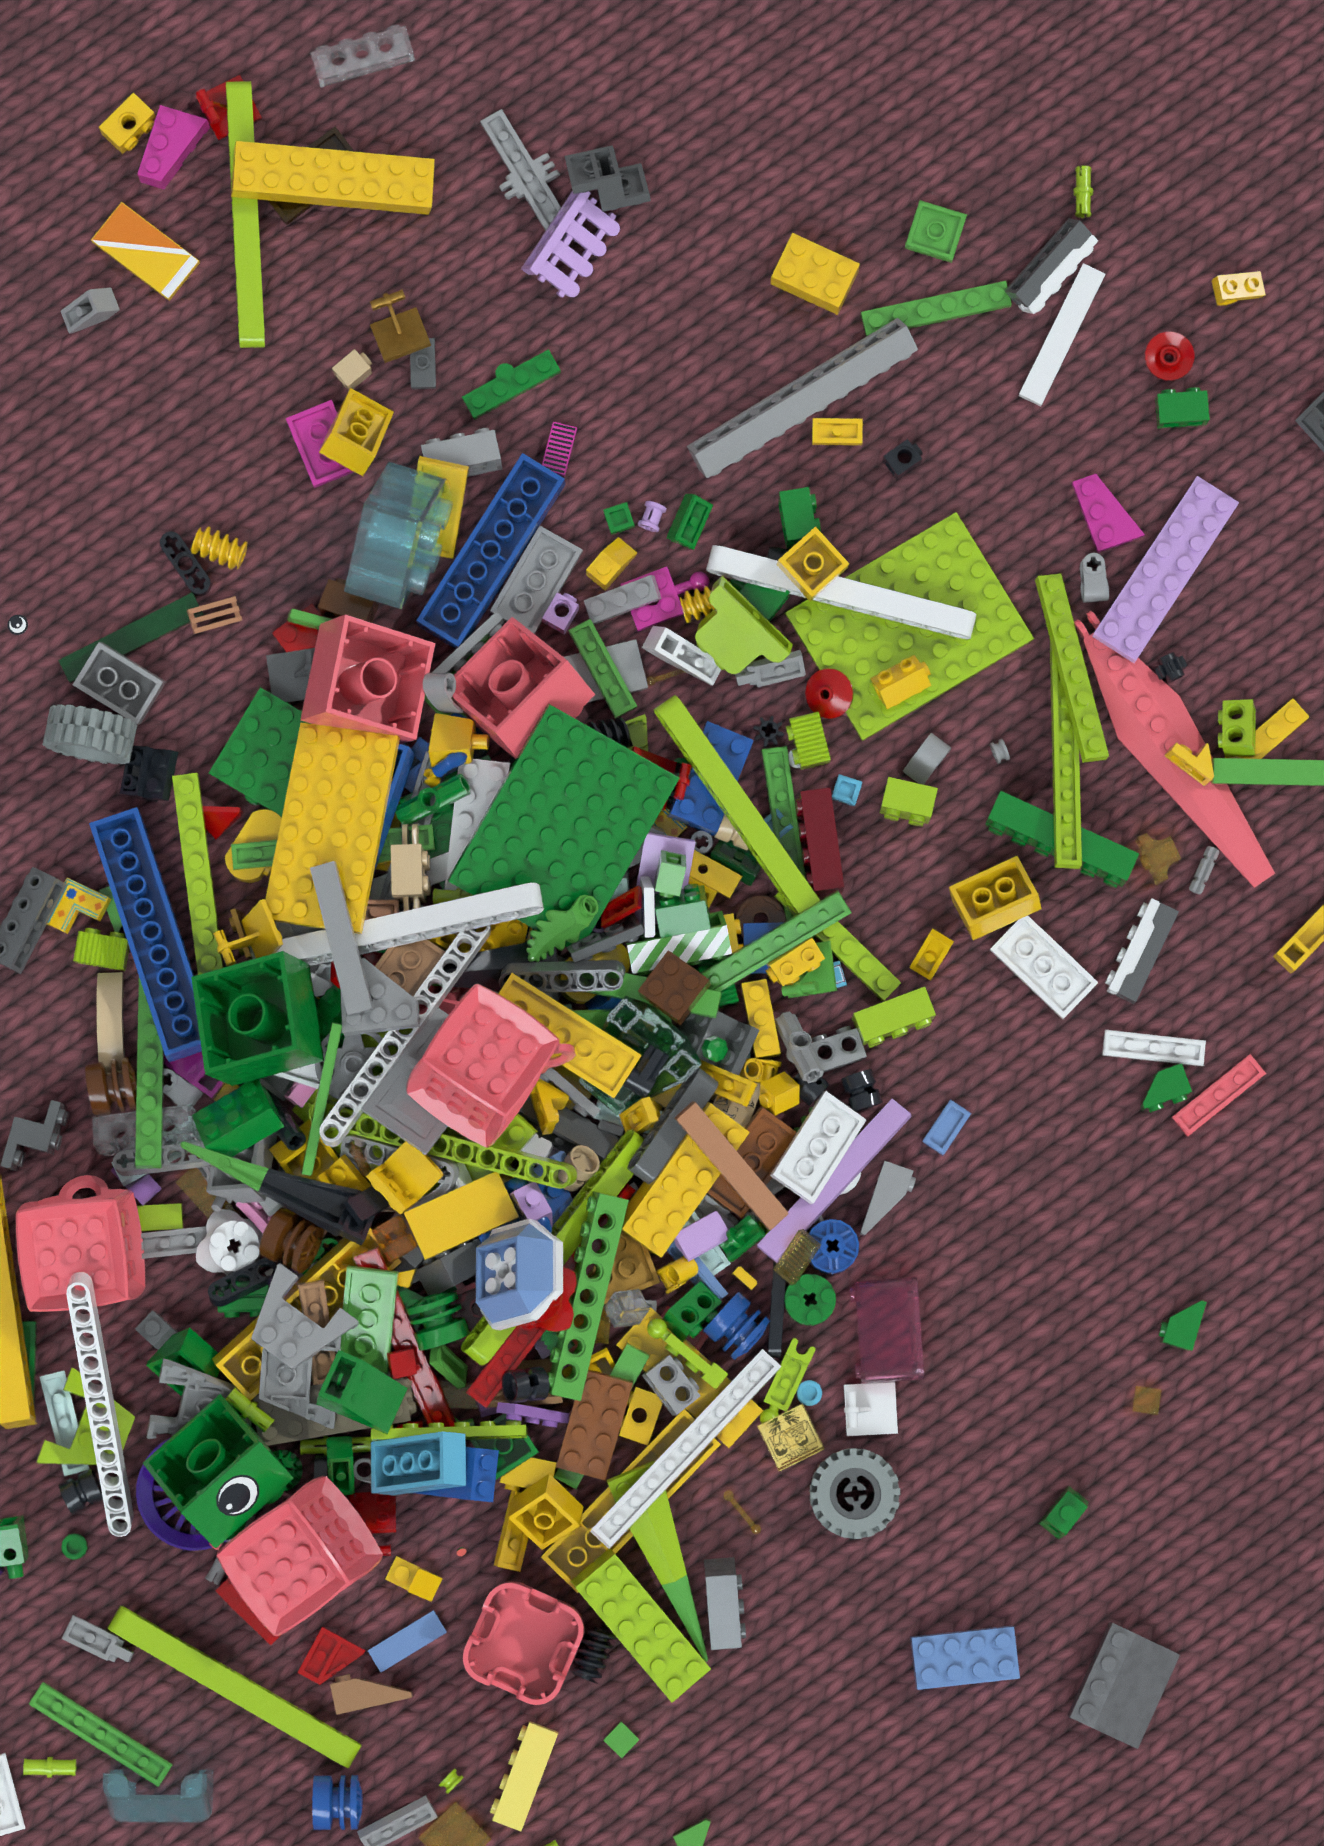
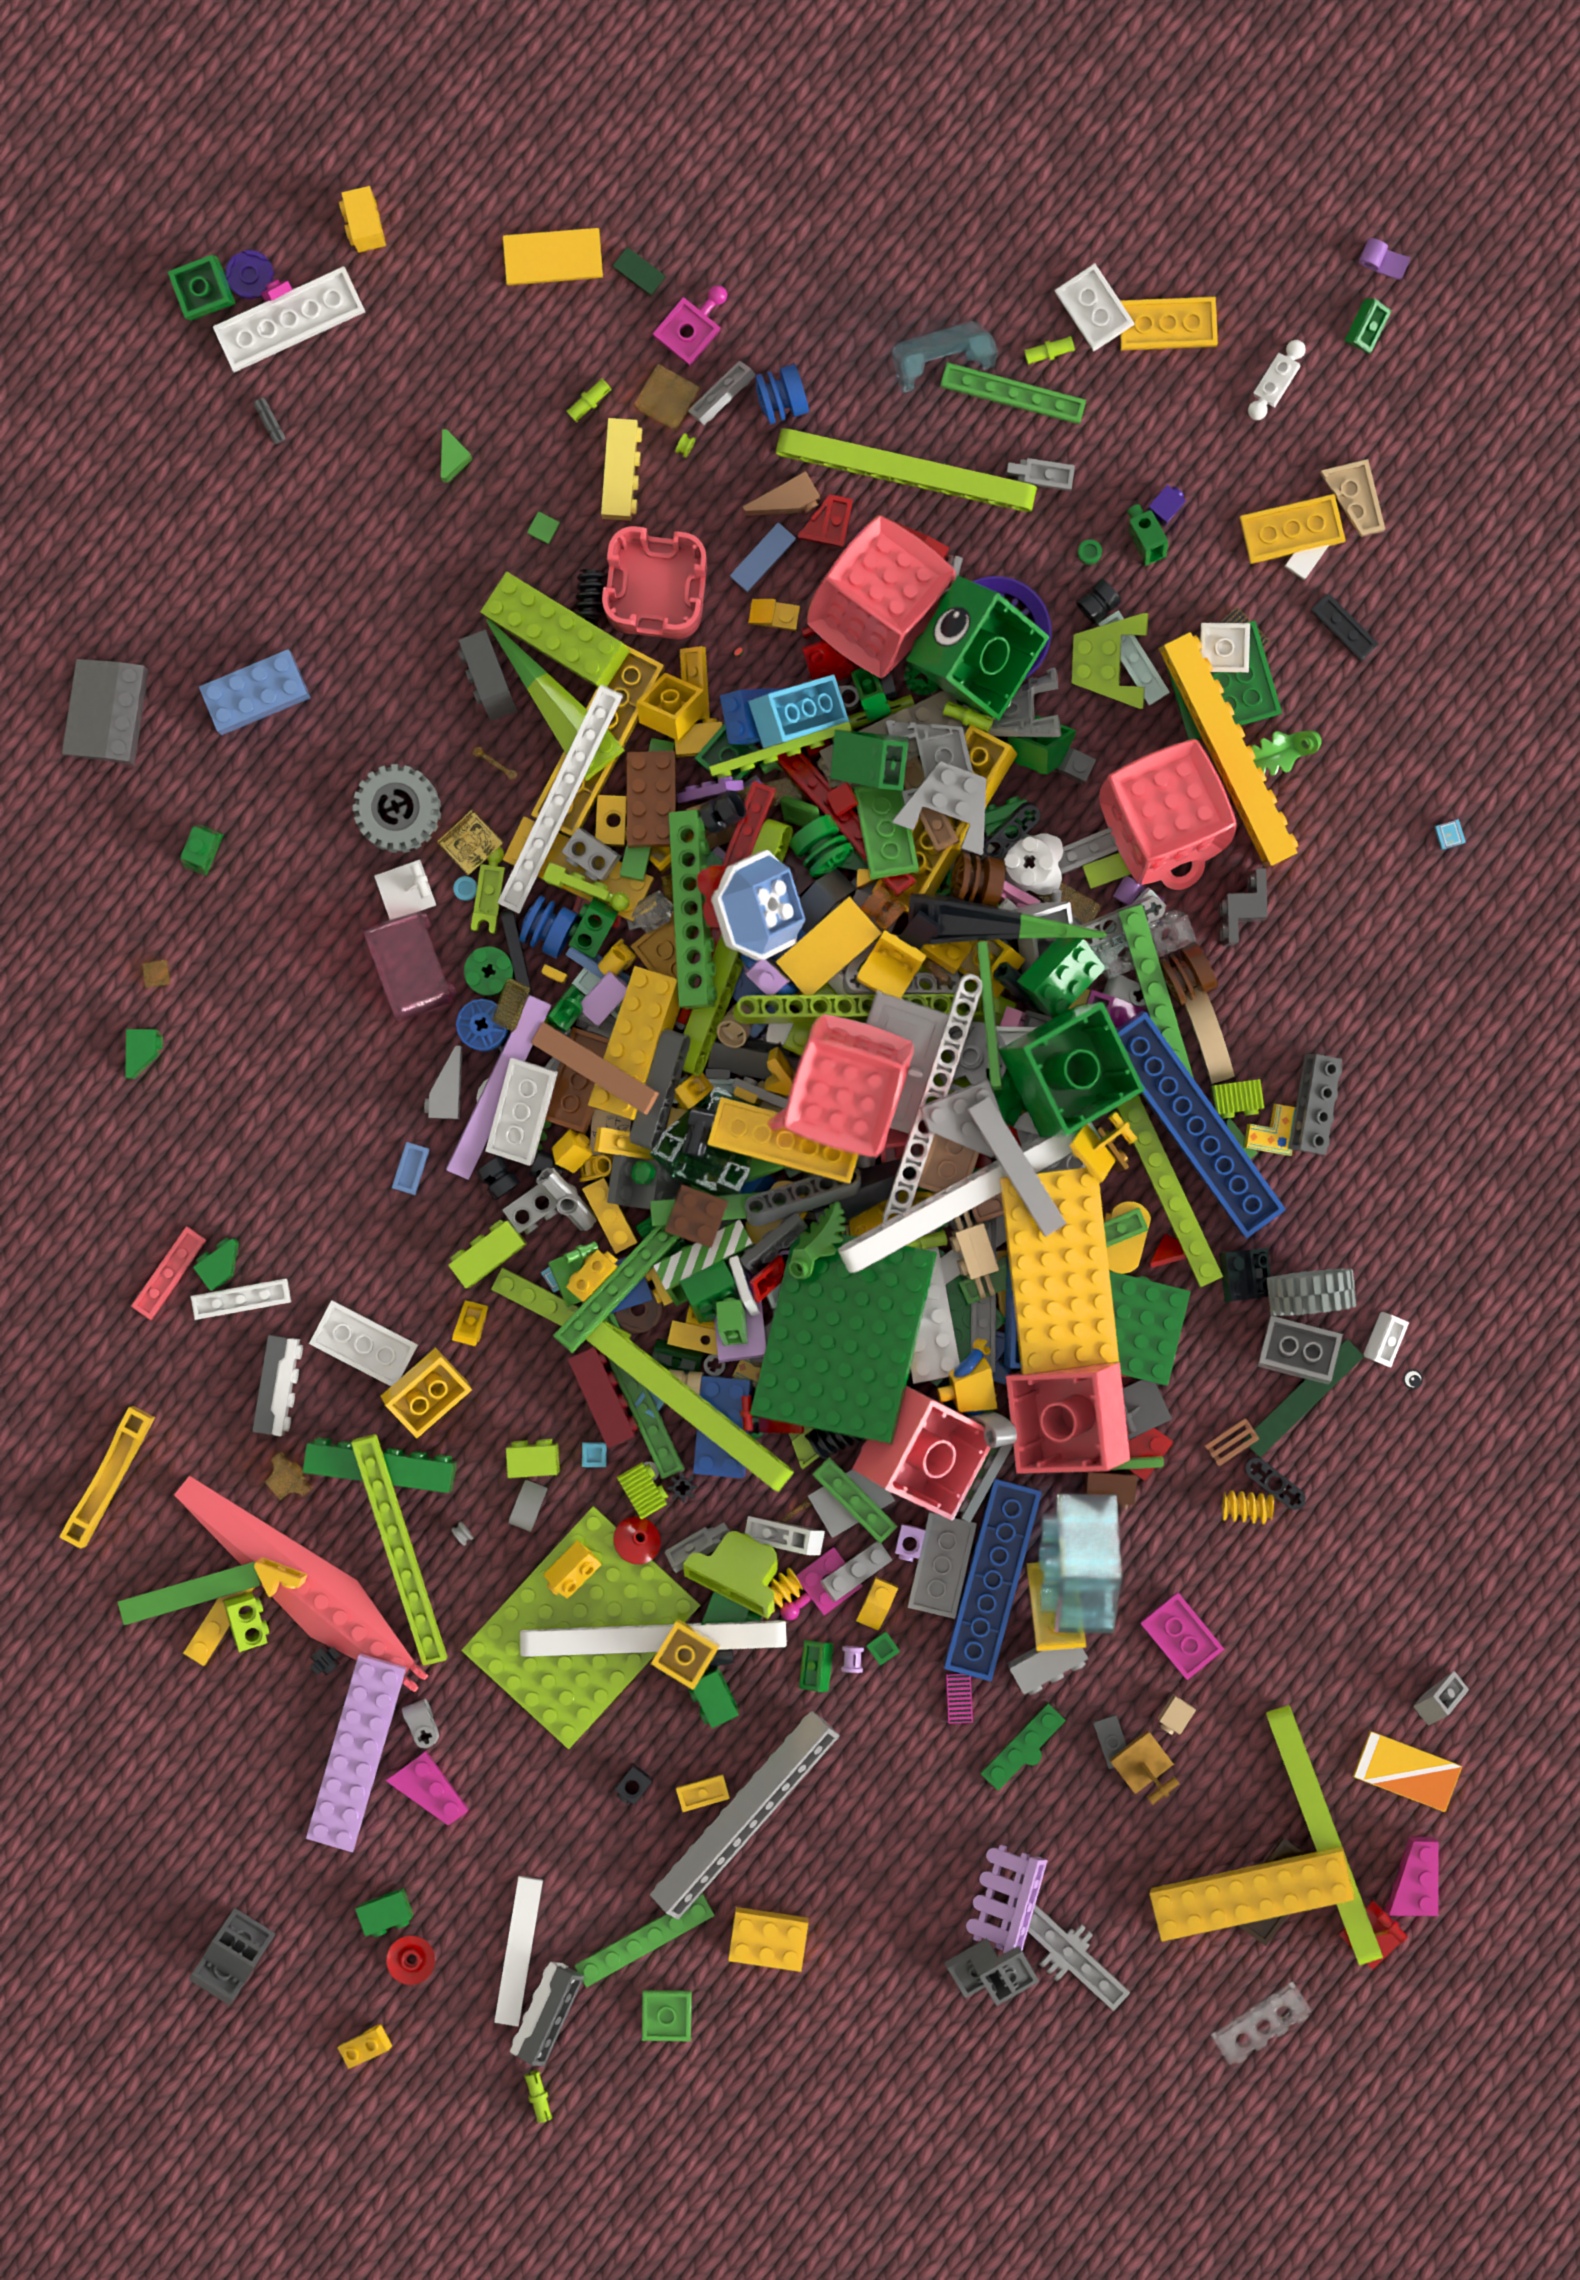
camera: 165 degrees right, 5 degrees up
(31, 671) = (1385, 1339): none -> white slope
(100, 1394) = (1067, 612): white beam -> none
(130, 110) = (1462, 1904): yellow brick -> none
(356, 432) = (1153, 1655): yellow slope -> none
(445, 794) = (963, 1334): green piece -> none
(588, 1095) = (747, 1096): none -> yellow tile
(1071, 668) = (416, 1631): lime plate -> none
(1204, 870) = (241, 1479): light grey axle -> none

